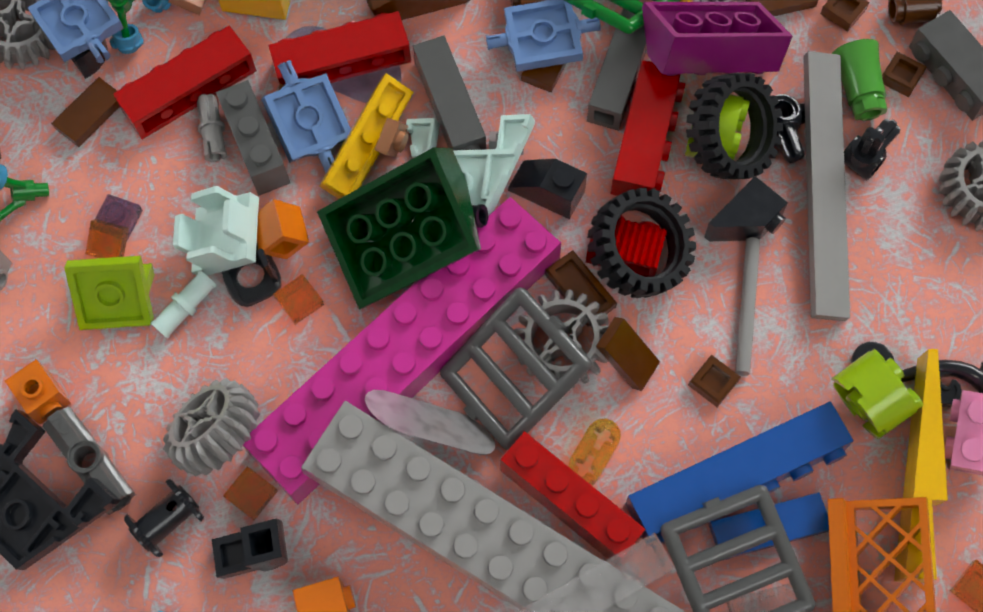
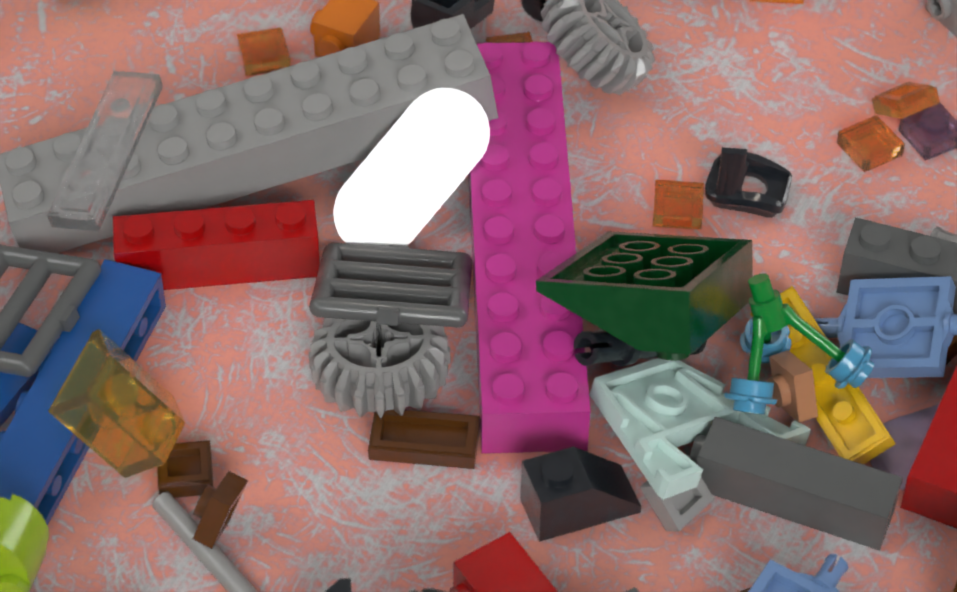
camera: 130 degrees right, 20 degrees down
(110, 292) = (839, 68): lime bracket -> none
(155, 240) = (870, 143): none -> clear orange tile
(183, 304) = (766, 115): light aqua pin -> none
(222, 231) = (822, 175): light aqua panel -> none
(281, 229) = (772, 222): orange brick -> none
(366, 109) = (768, 335): none -> plant
(602, 456) = (231, 313): clear yellow beam -> none
(628, 353) = (295, 388): reddish brown tile -> none
(638, 245) = (420, 502): red brick -> none
(677, 243) = (362, 456): black tyre -> none
(728, 422) = (118, 408): none -> clear yellow slope
(729, 324) = (217, 508): none -> reddish brown plate

